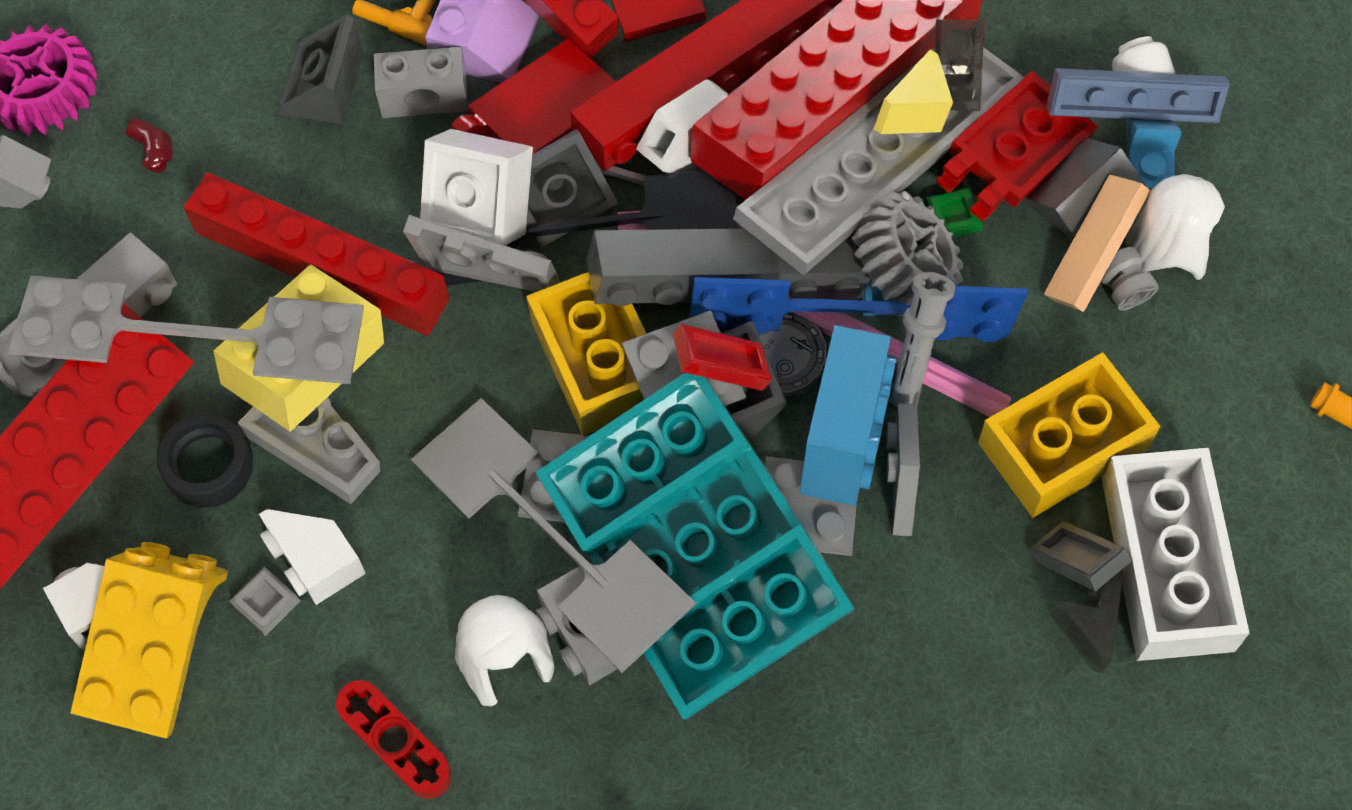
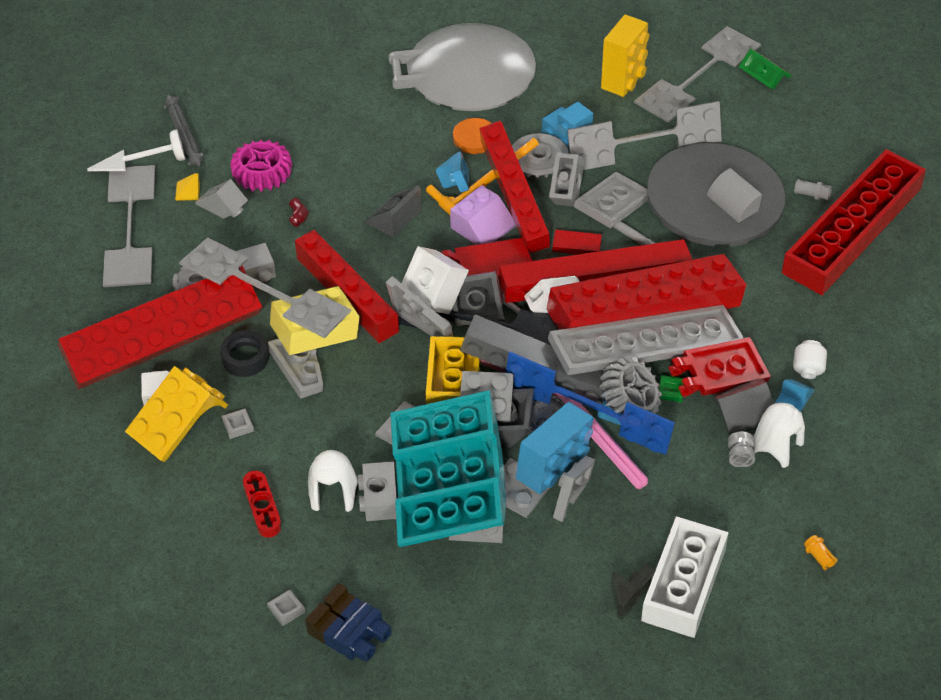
camera: 25 degrees right, 15 degrees down
(316, 551) = (271, 412): white slope -> none
(421, 82) = (438, 230): light grey brick -> none
(620, 602) = (397, 480): light grey hinge -> none
(721, 357) = (504, 393): red tile -> none
(918, 101) = (671, 321): light yellow slope -> none
(923, 324) = (613, 419): light grey pin -> none
(961, 57) = (705, 314): clear smoke slope -> none
(1067, 434) = (656, 499): yellow brick -> none
(1080, 555) = (636, 557): dark grey tile -> none
(1097, 242) = (732, 424): light nougat tile -> none
(1137, 95) = (797, 367): sand blue tile -> none

